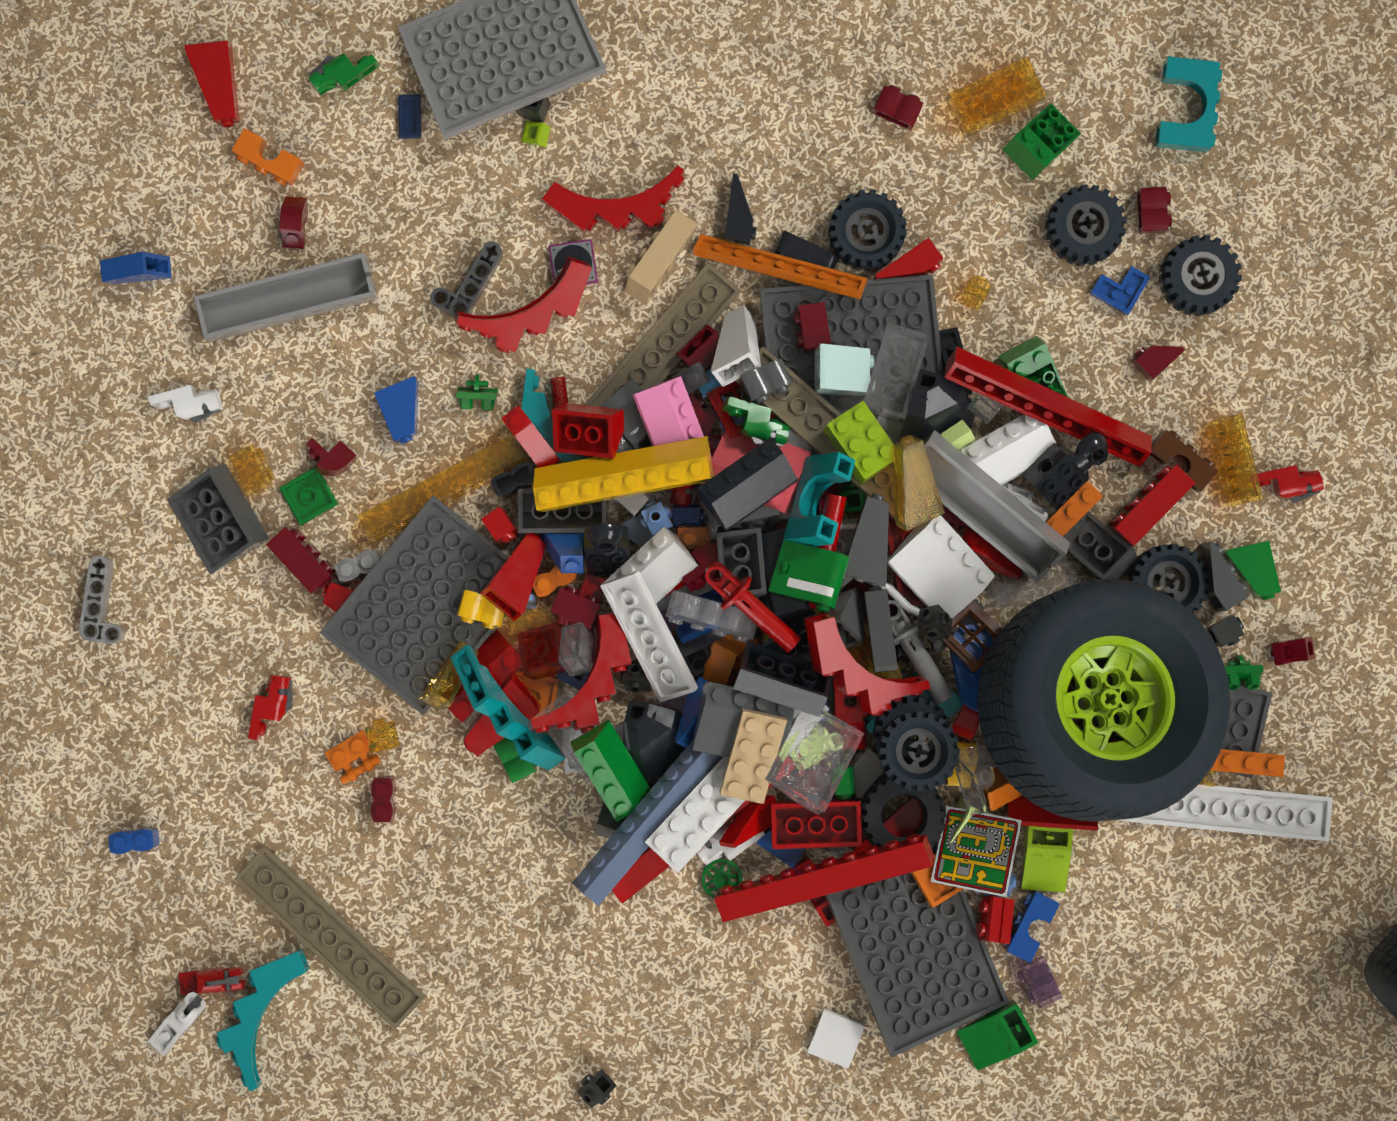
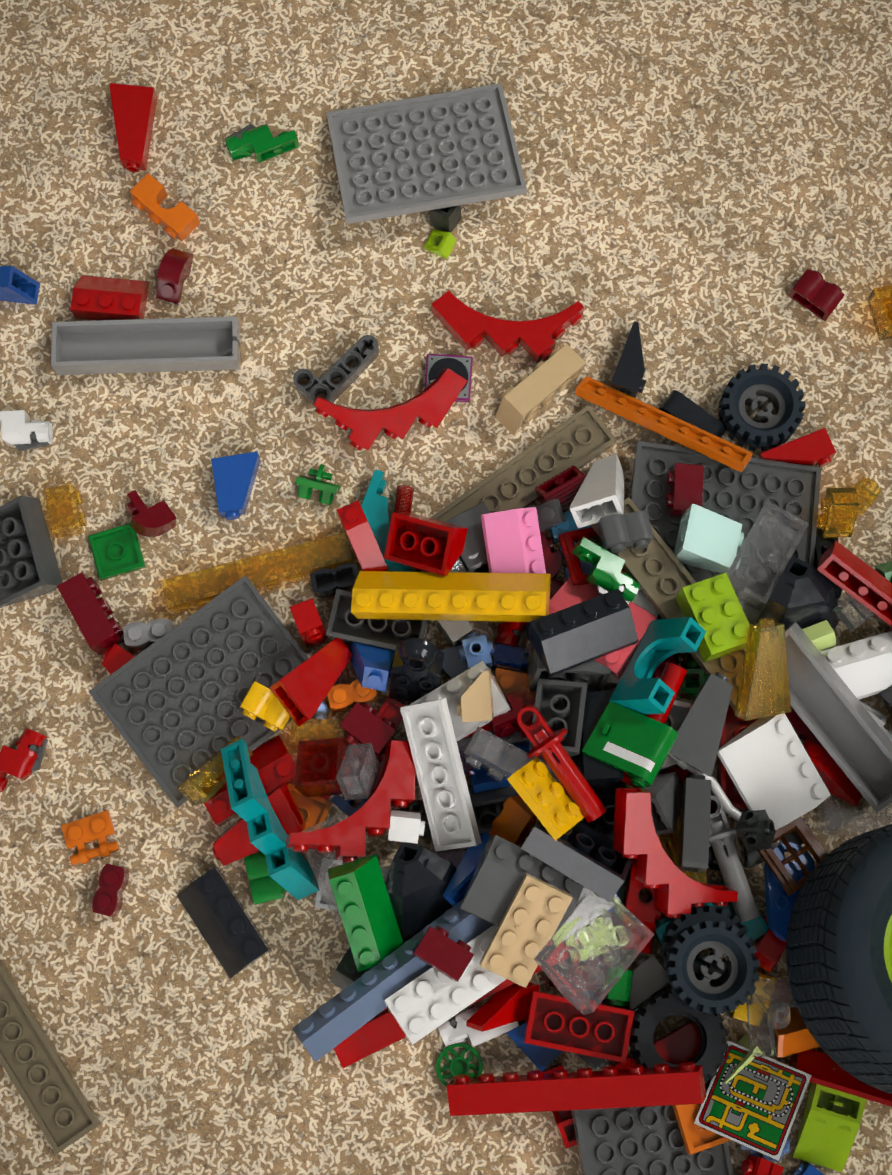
camera: 10 degrees right, 10 degrees down
(240, 258) = (109, 298): none -> red slope
(381, 735) = (127, 820): clear yellow brick -> none
(409, 116) = (317, 200): dark blue tile -> none
(489, 803) = (223, 922): none -> black slope
(629, 688) = (405, 826): none -> white brick
(667, 565) = (477, 700): none -> tan slope
(687, 791) = (443, 953): none -> dark red brick
(745, 641) = (545, 798): none -> yellow plate
(955, 315) = (838, 512): none -> clear yellow brick

